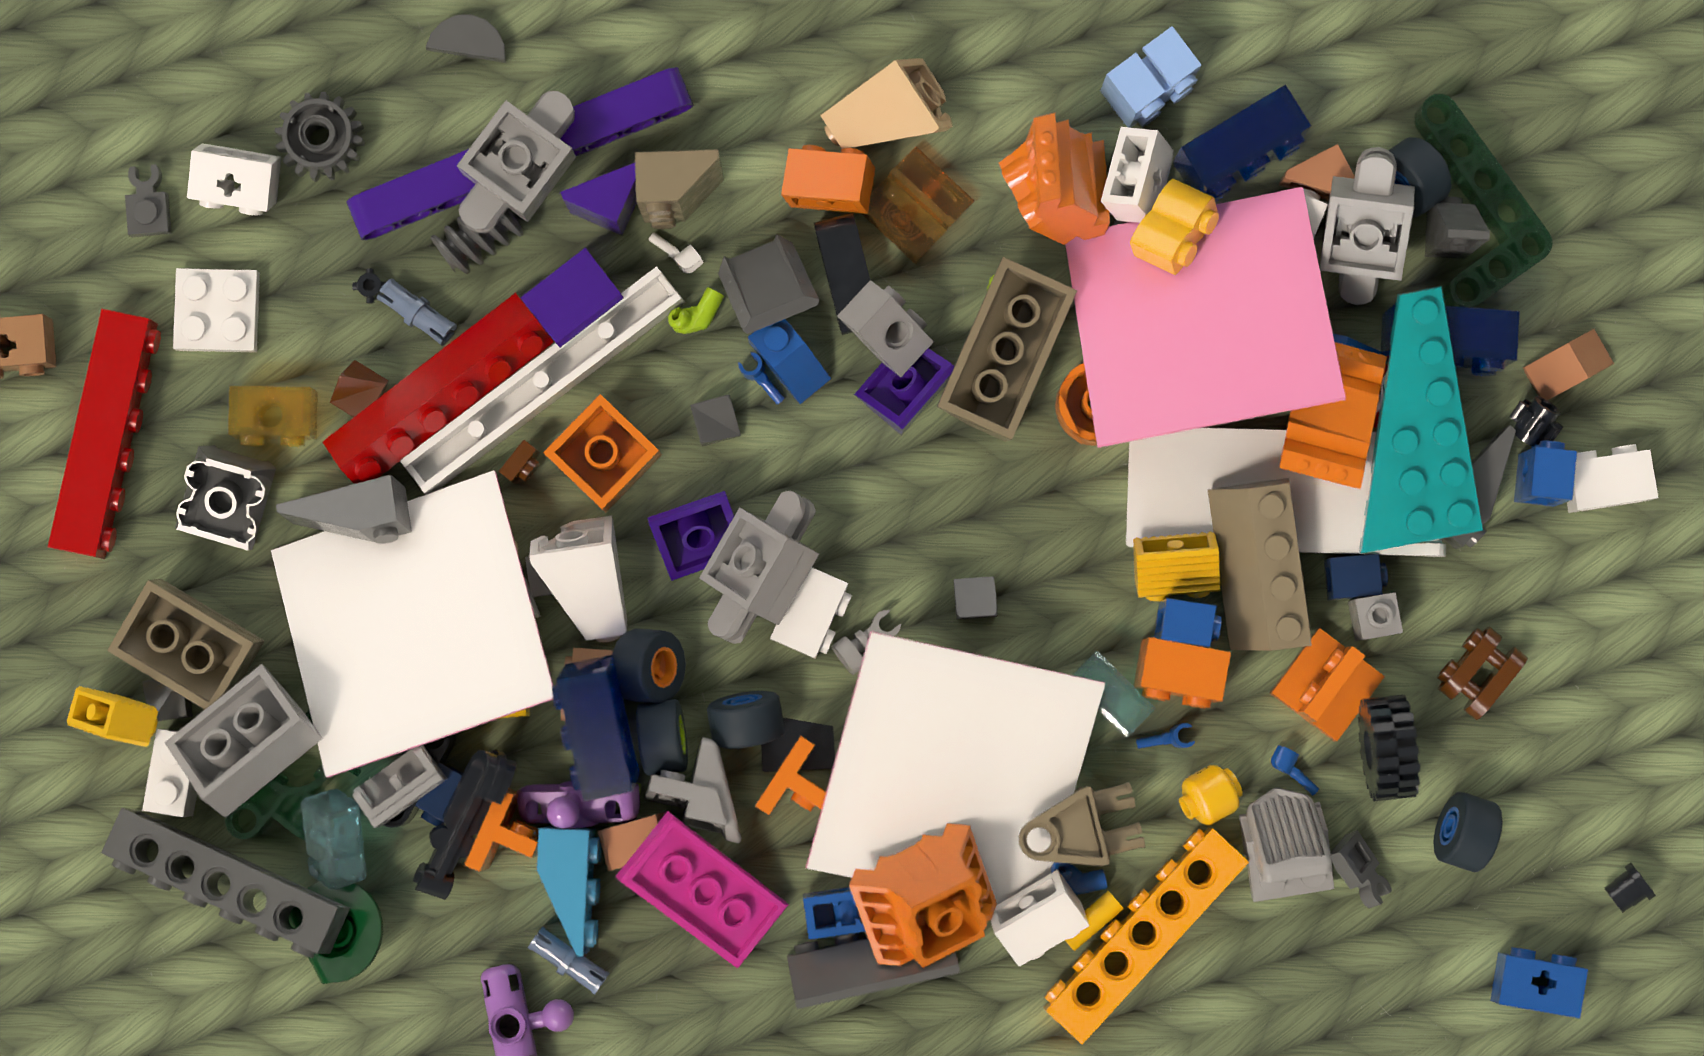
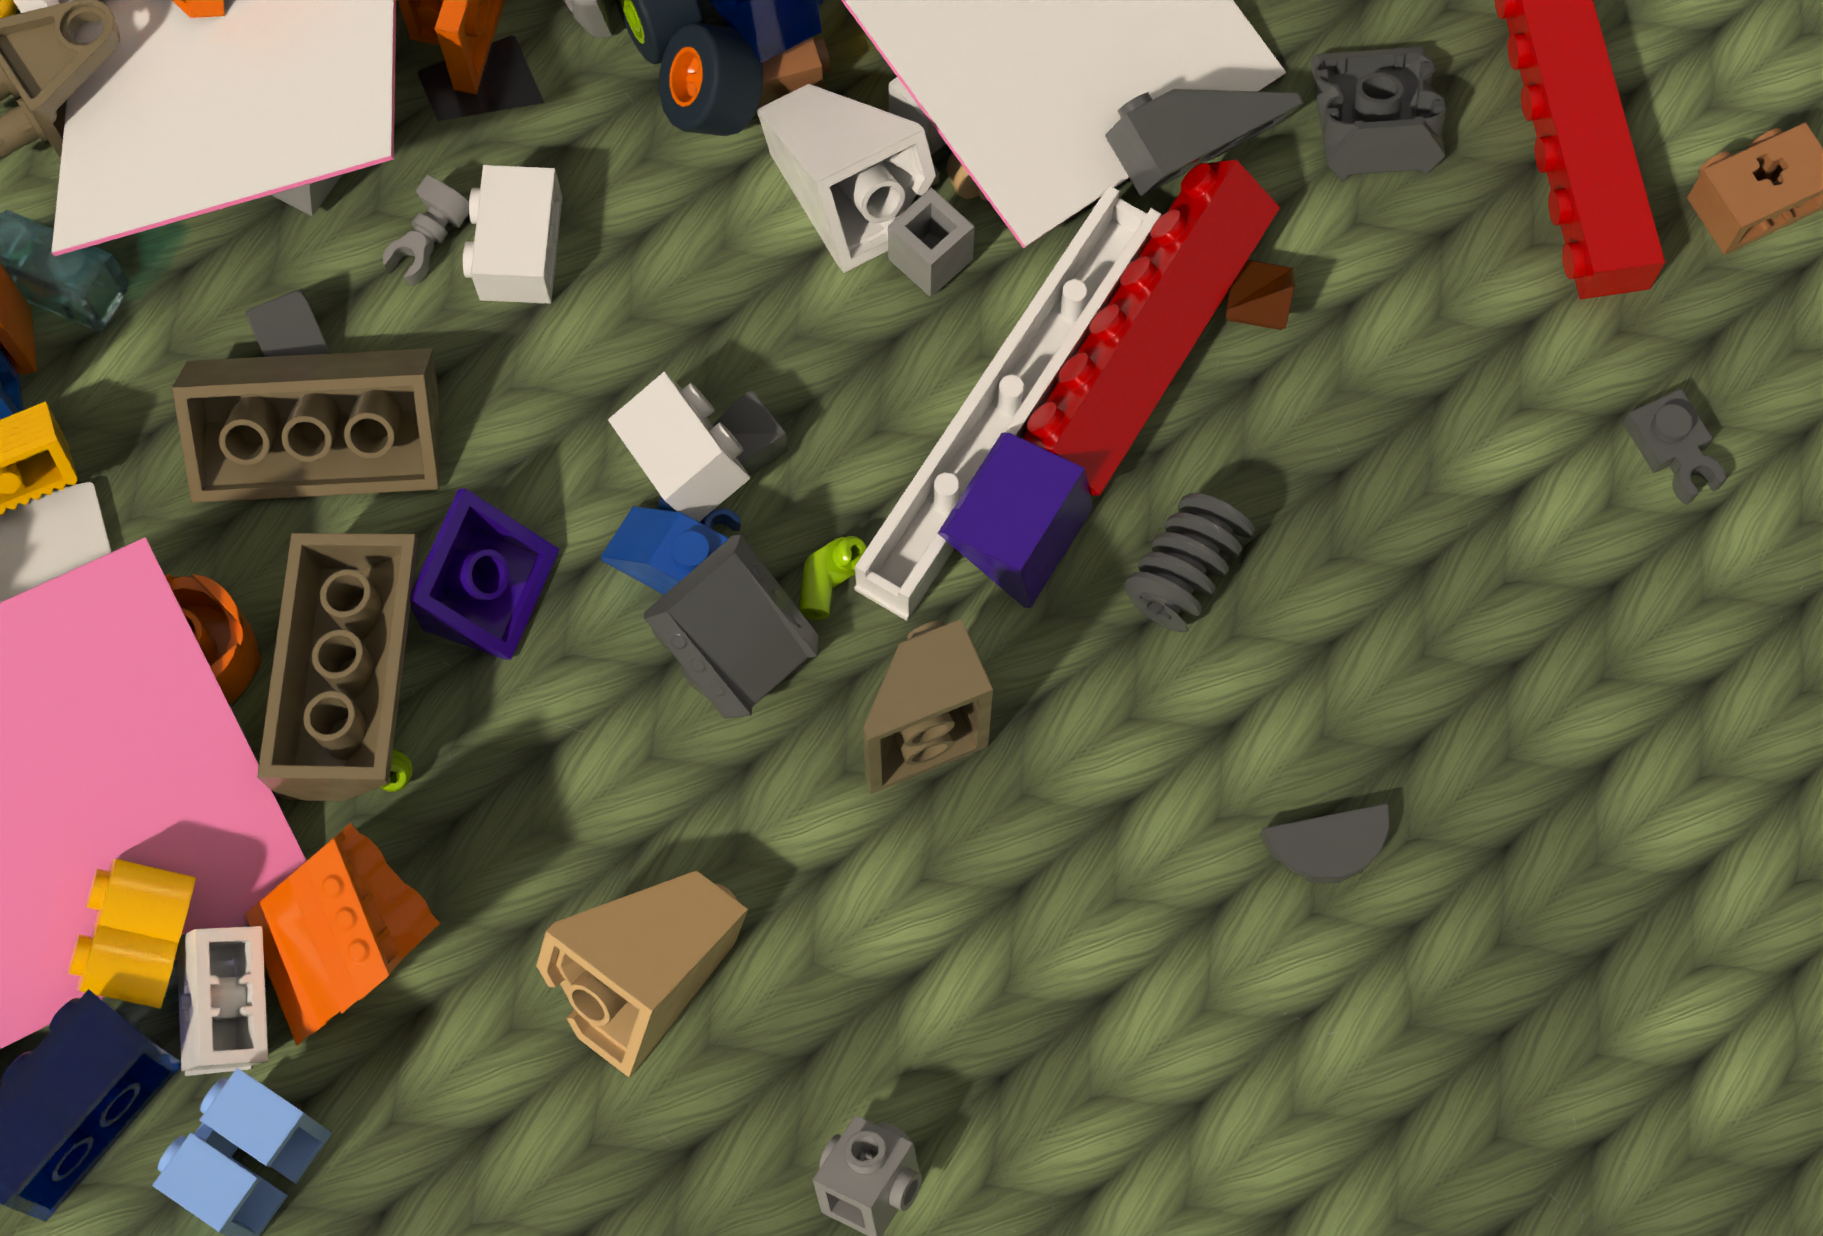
camera: 160 degrees right, 15 degrees down
(216, 310) = (1508, 339): white plate -> none
(251, 403) = (1341, 249): clear yellow brick -> none
(255, 171) = (1573, 509): white brick -> none
(335, 152) = (1498, 588): dark grey gear -> none
(368, 285) = (1312, 447): black piece -> none
(416, 311) = (1230, 431): sand blue pin -> none
(516, 161) = (1172, 653): light grey brick -> none
(521, 463) = (994, 282): reddish brown plate -> none
(551, 499) = (930, 242): none -> light grey brick
(594, 125) = (1173, 704): dark purple beam -> none
(602, 453) = (883, 325): orange brick -> none
(605, 199) = (1027, 657): dark purple slope -> none
(687, 259) = (873, 643): white hand -> none
(691, 533) = (715, 283): dark purple slope -> none
(745, 719) = (553, 68): black wheel -> none
(758, 416) = (680, 448): none -> white brick
(759, 566) = (618, 272): light grey brick -> none
(828, 179) = (701, 821): orange brick -> none
(842, 260) = (627, 704): black beam -> none
(886, 327) = (534, 627): light grey brick -> none
(916, 205) = (559, 844): clear orange slope -> none
(979, 528) = (309, 425): none -> dark tan slope

